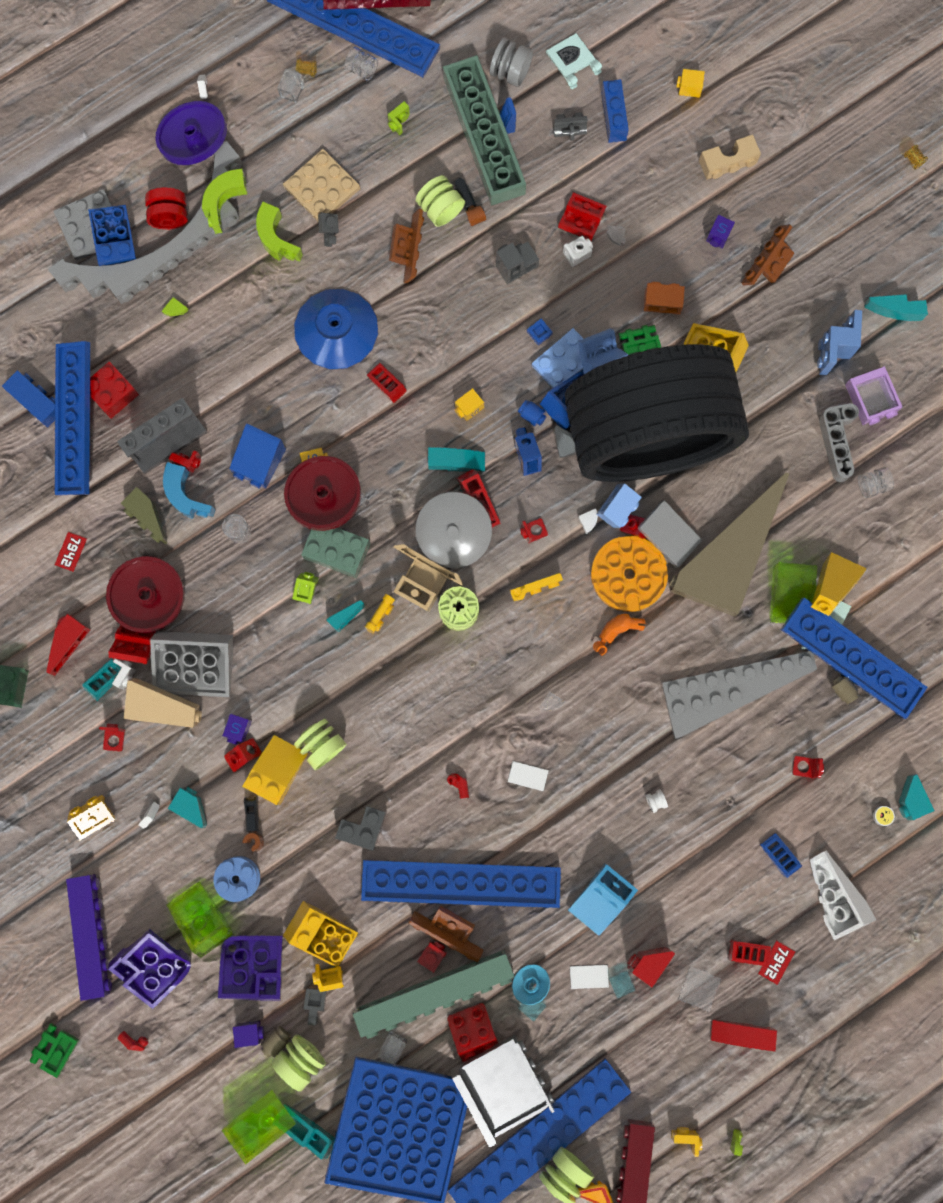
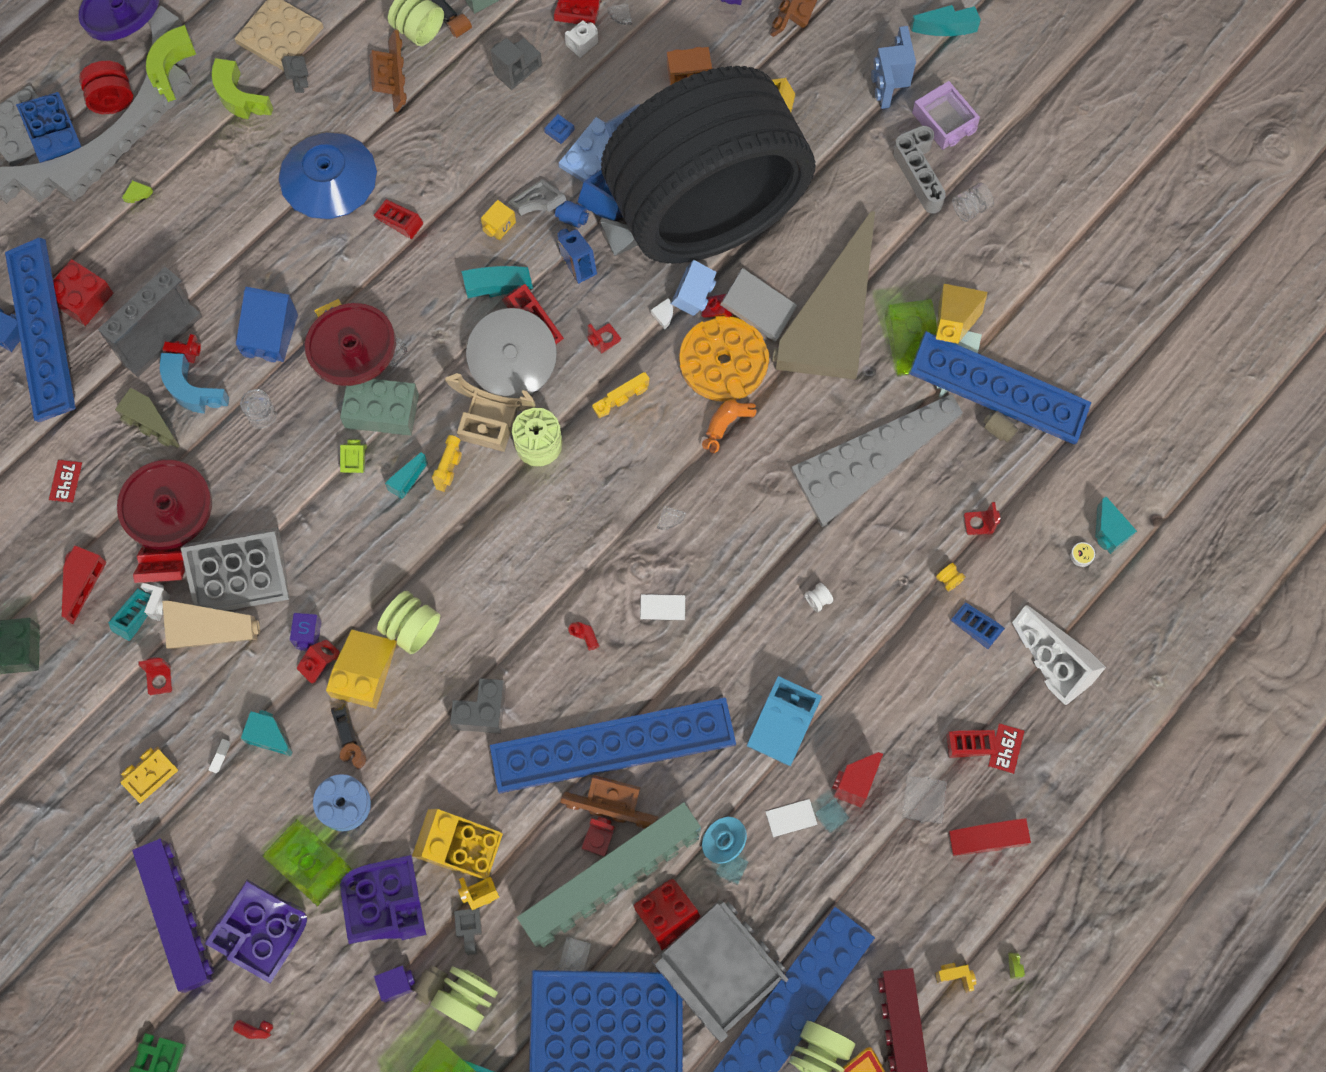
camera: 15 degrees left, 10 degrees down
(506, 392) = (537, 197): none -> light grey tile
(769, 810) = (950, 577): none -> yellow wheel

